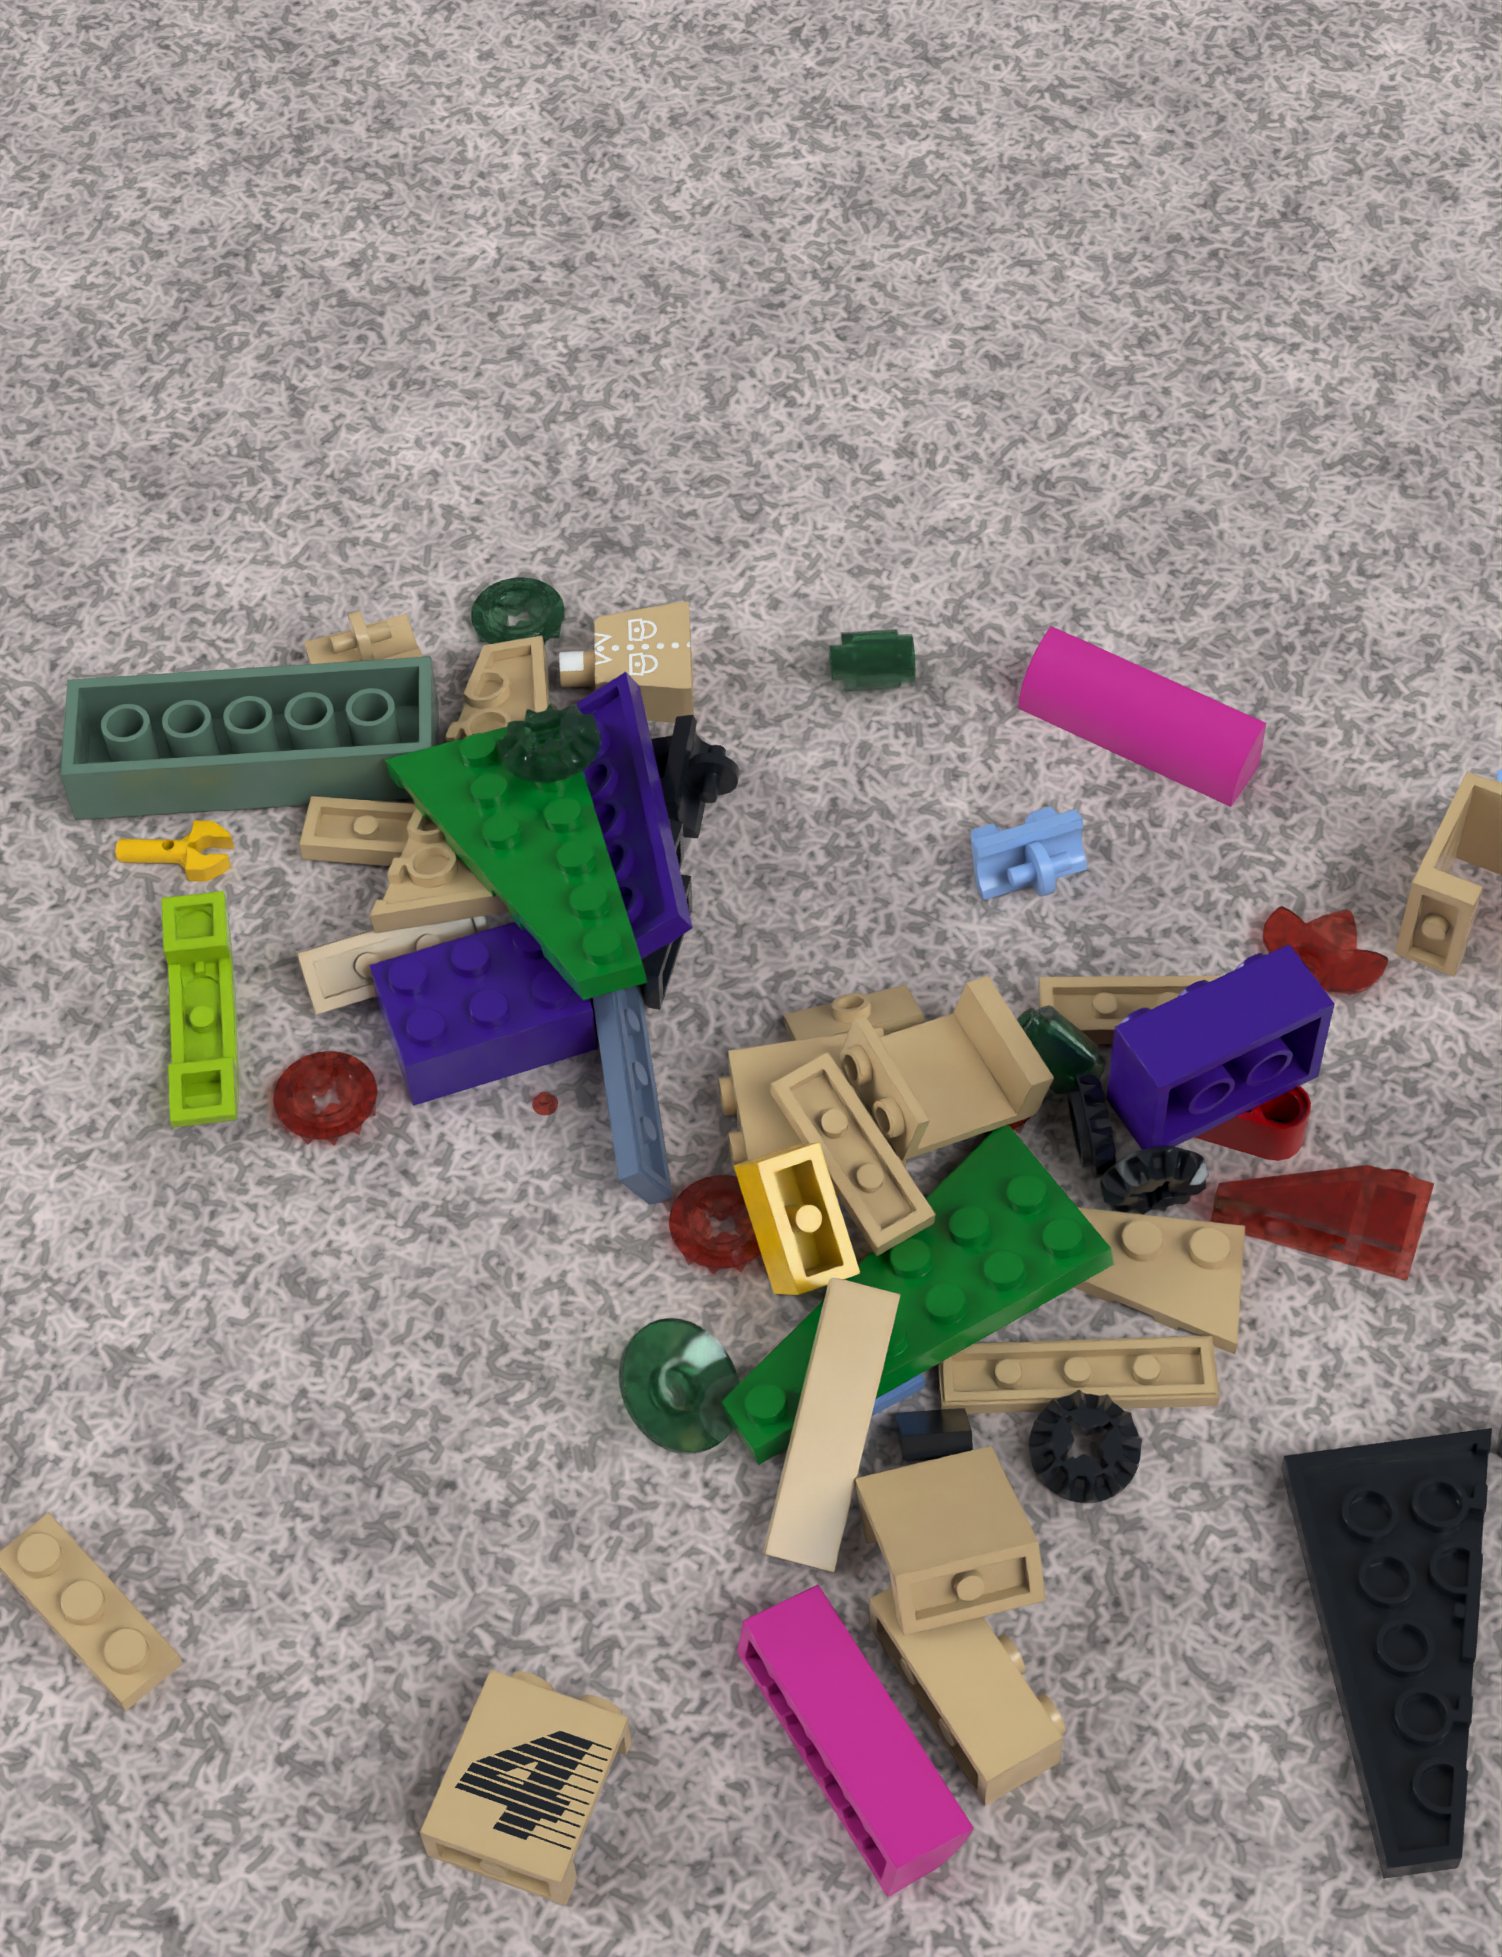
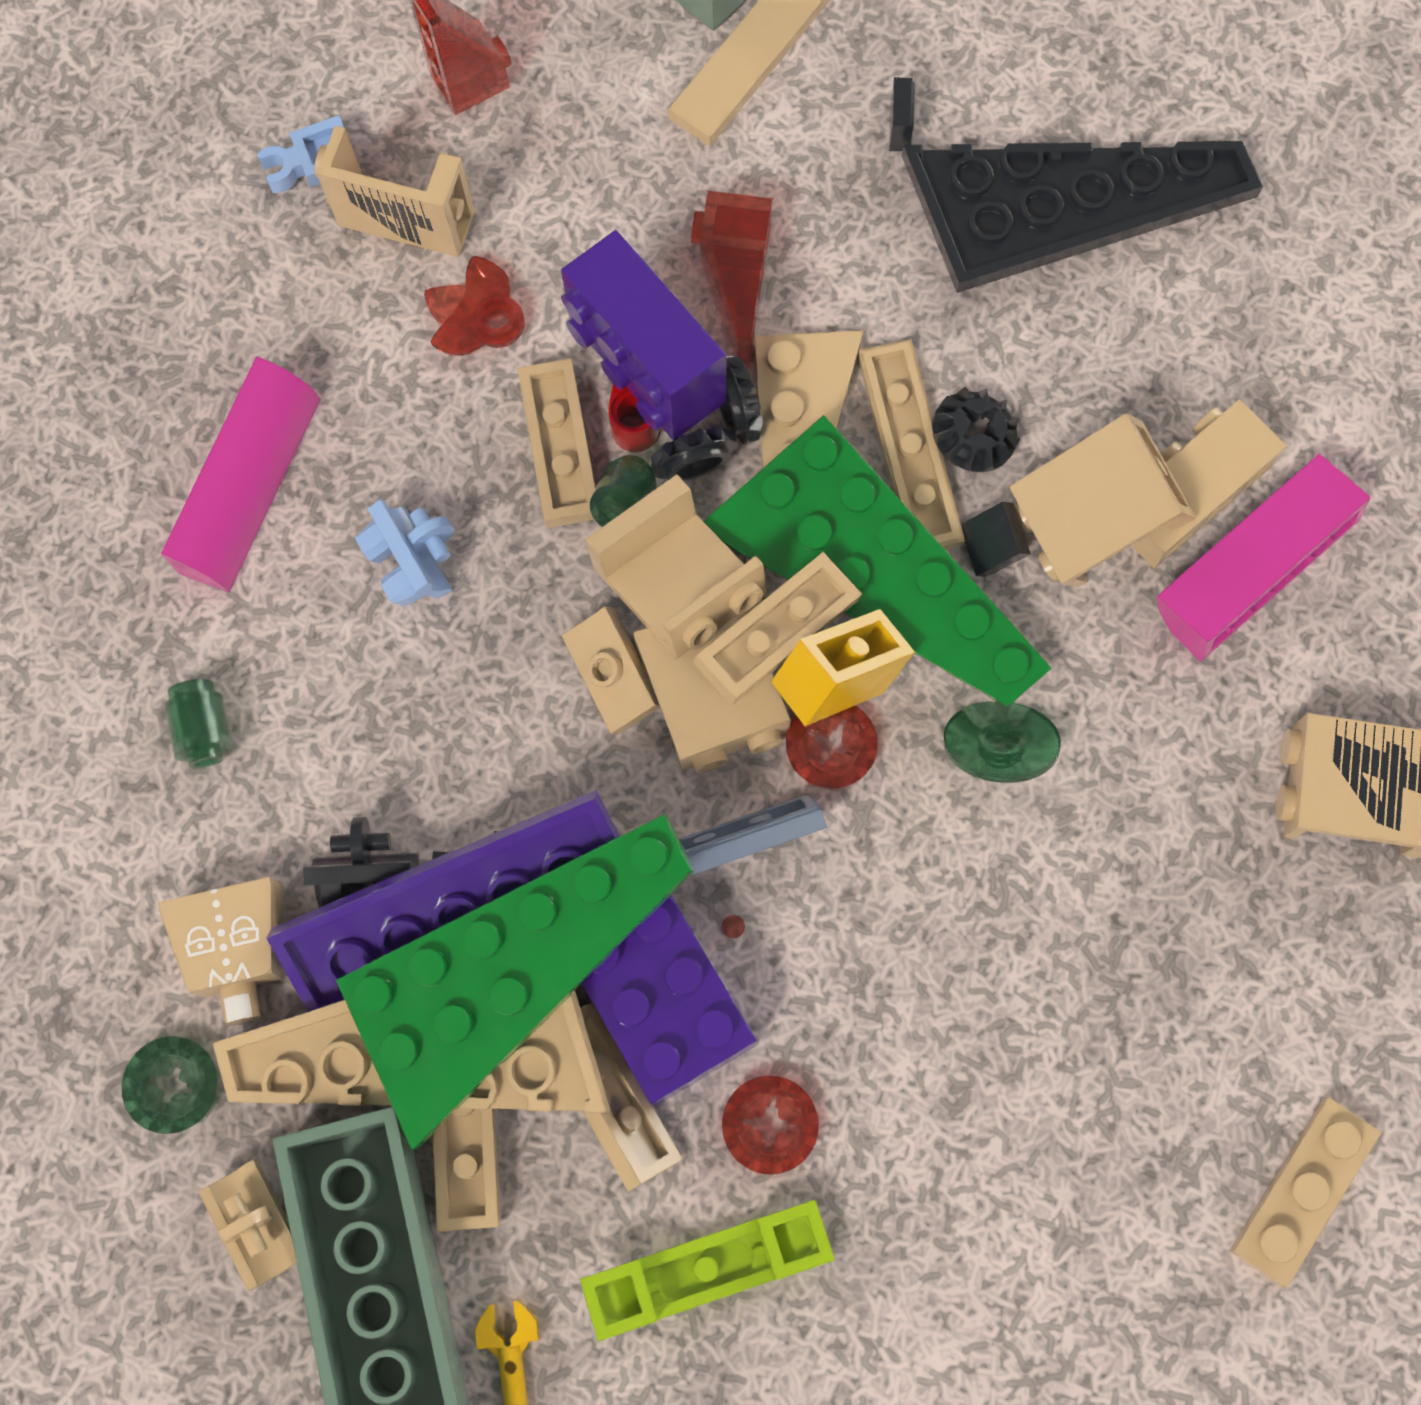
camera: 100 degrees left, 20 degrees up
(555, 758) = (425, 955): clear green gear -> none
(831, 1424) = (1021, 606): tan tile -> none

